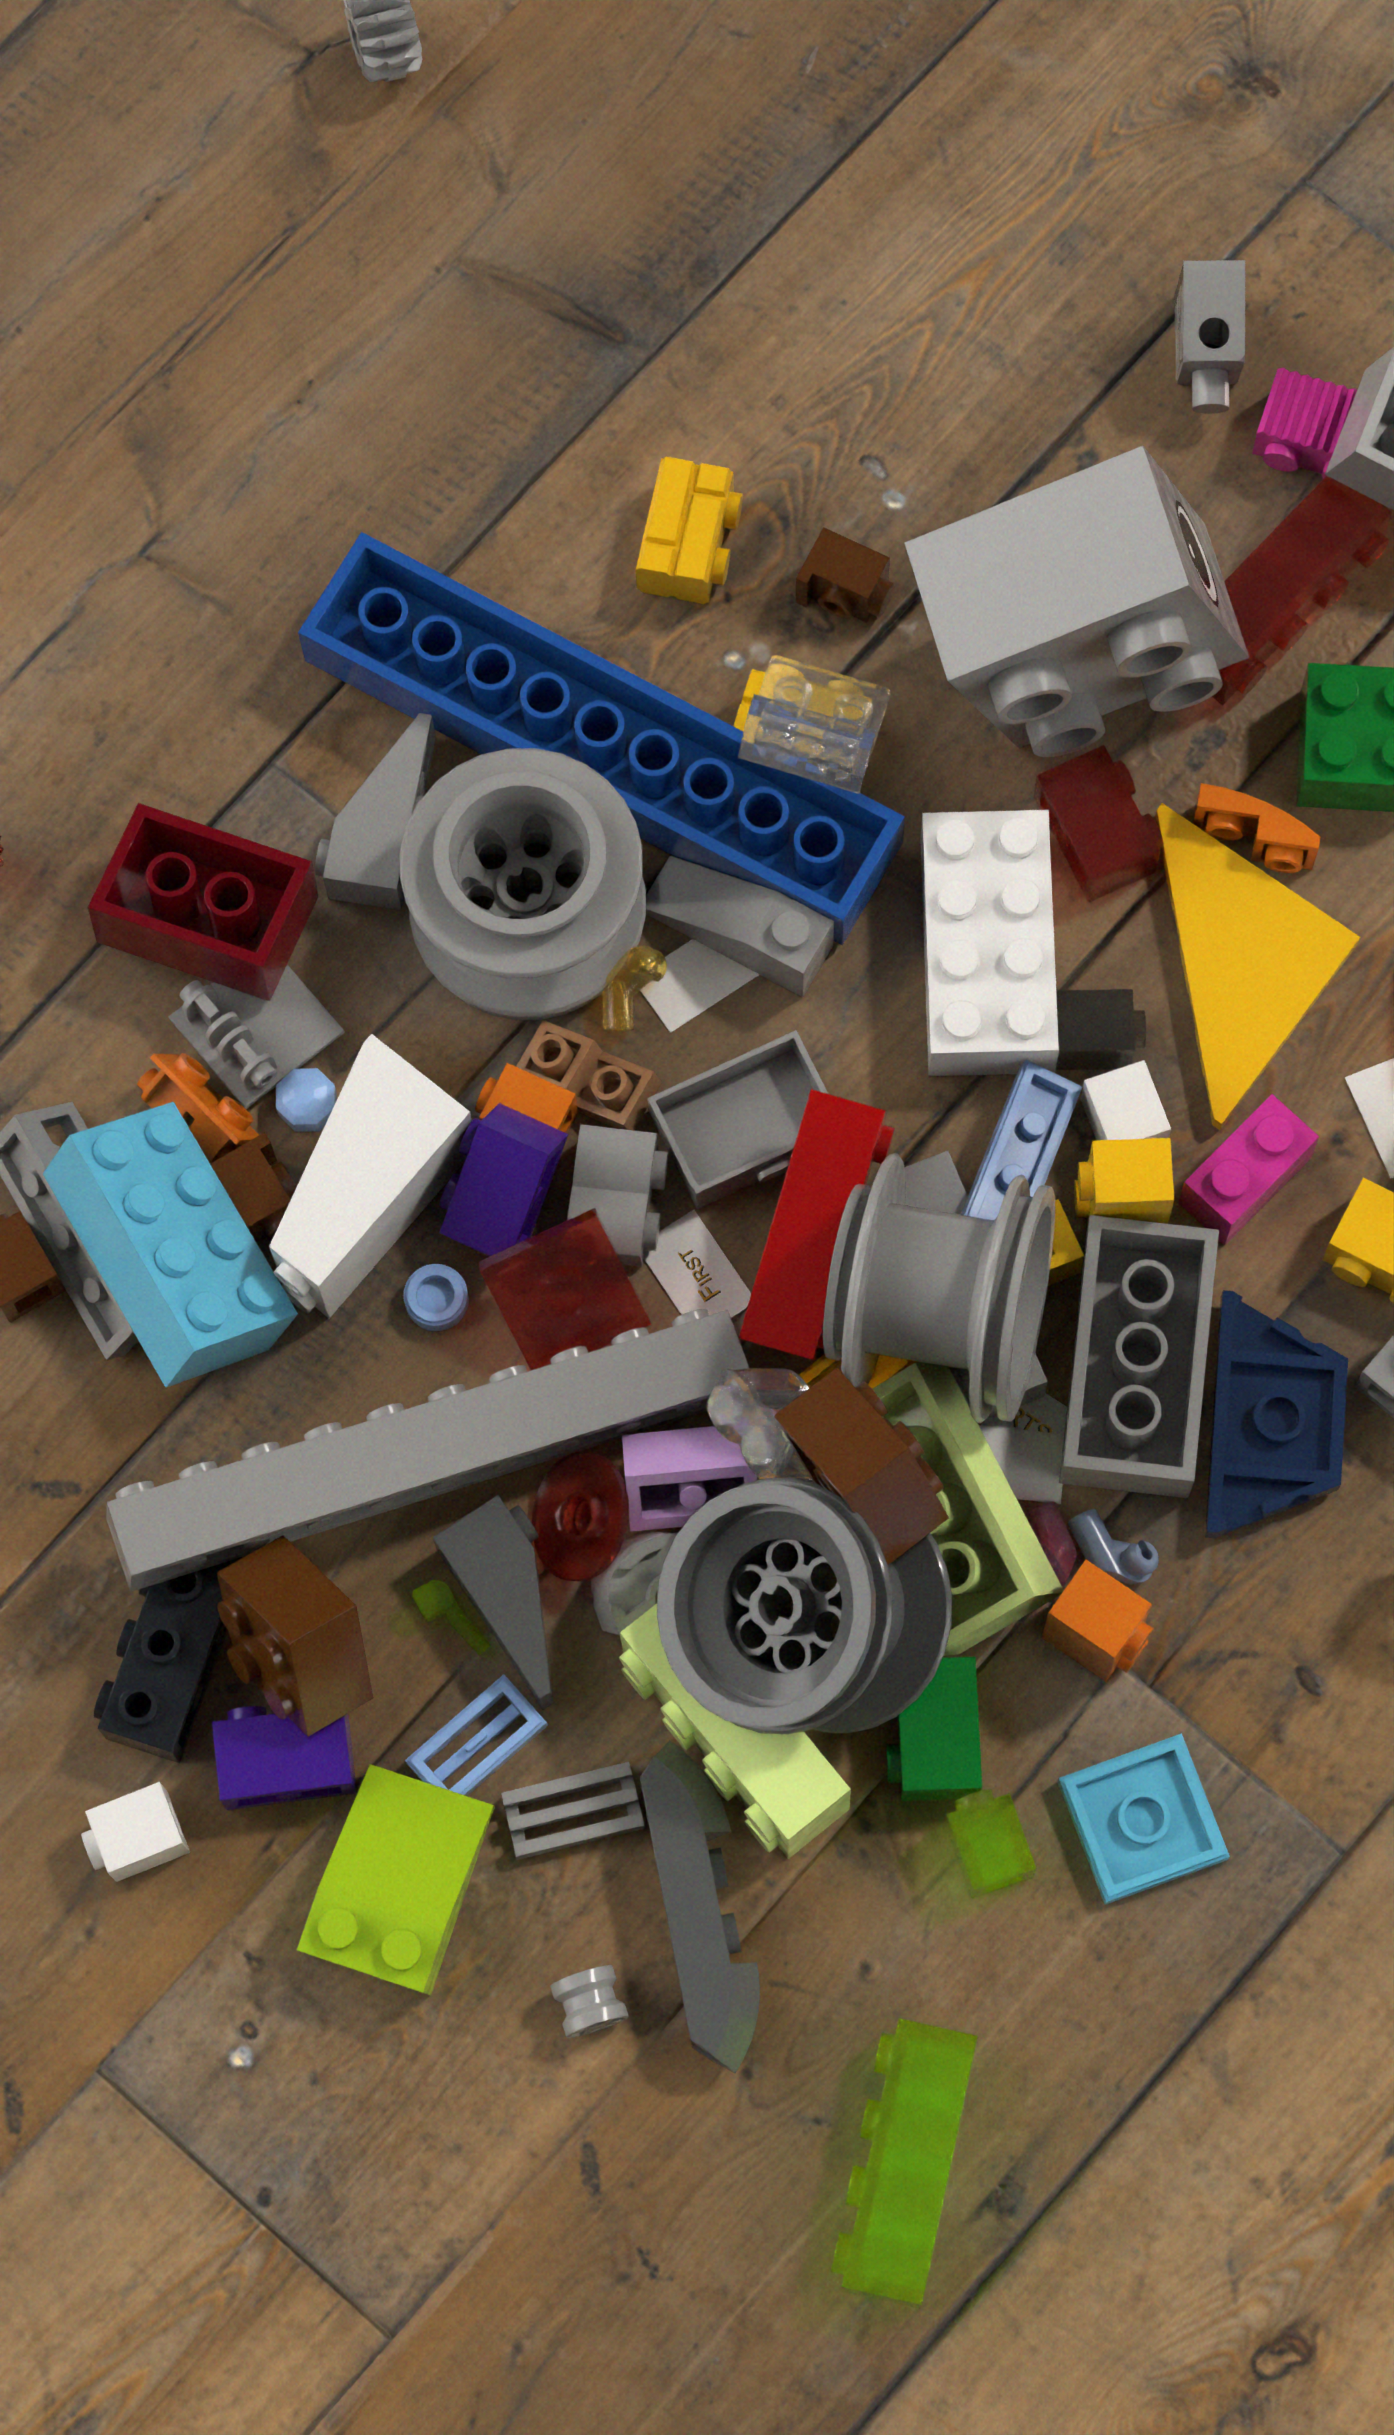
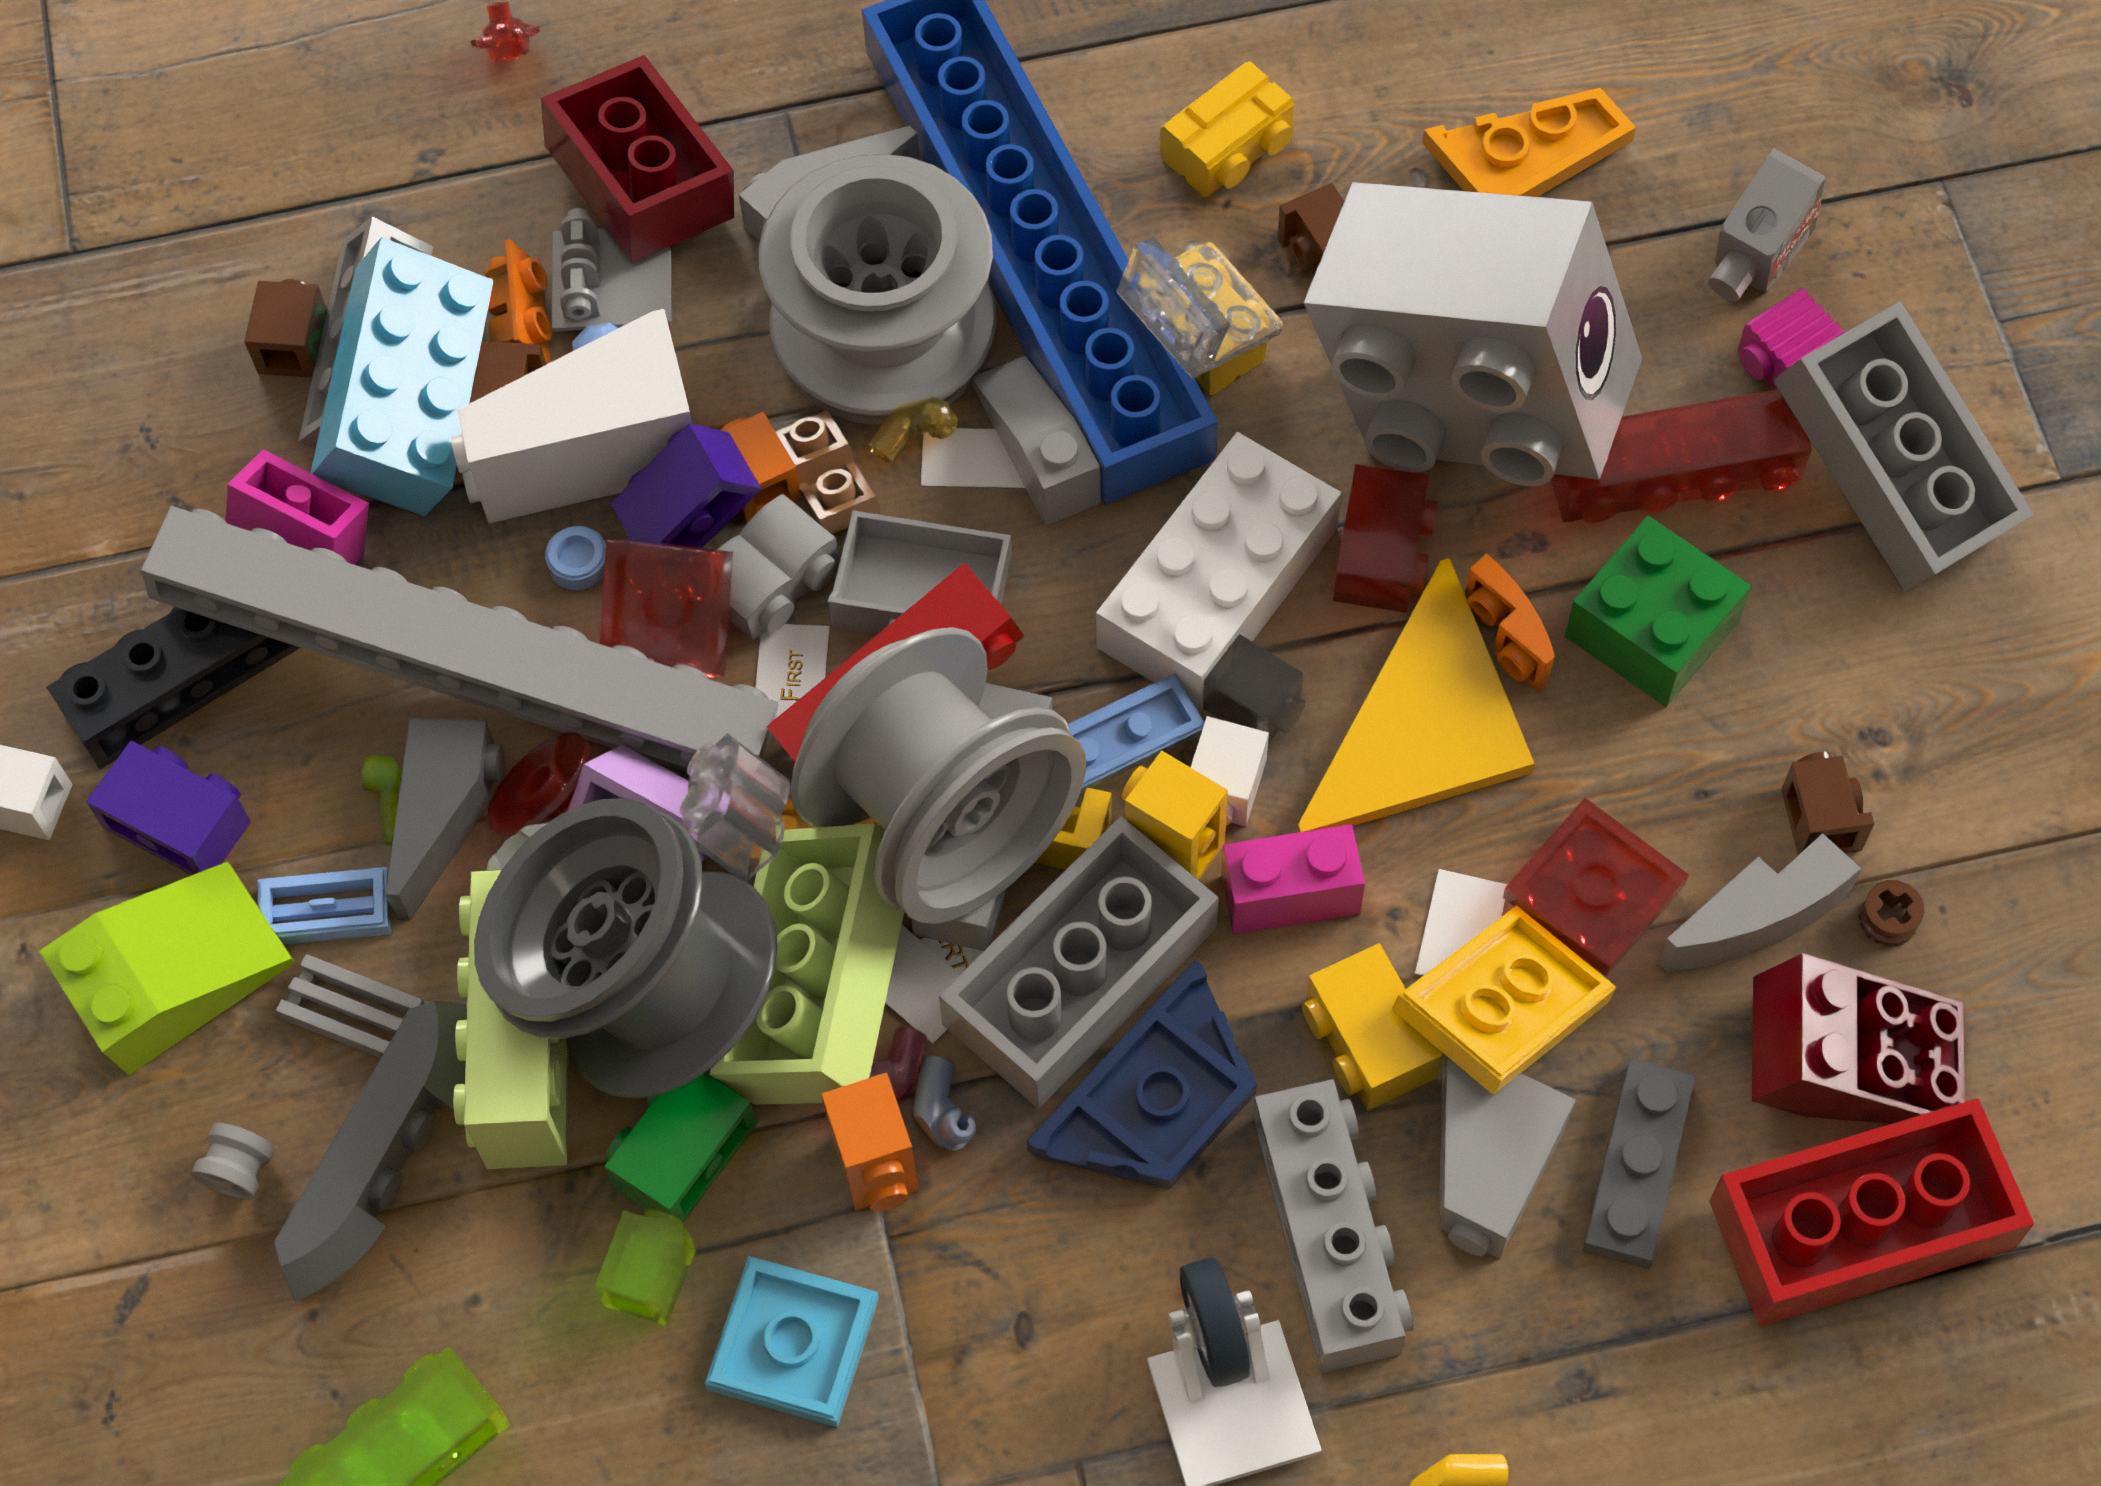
camera: 35 degrees right, 10 degrees down
(178, 1427) = (297, 507): none -> dark pink brick
(294, 1636) = (232, 711): reddish brown brick -> none
(865, 1460) = (753, 860): reddish brown brick -> none
(951, 384) = (1533, 148): none -> light orange wing

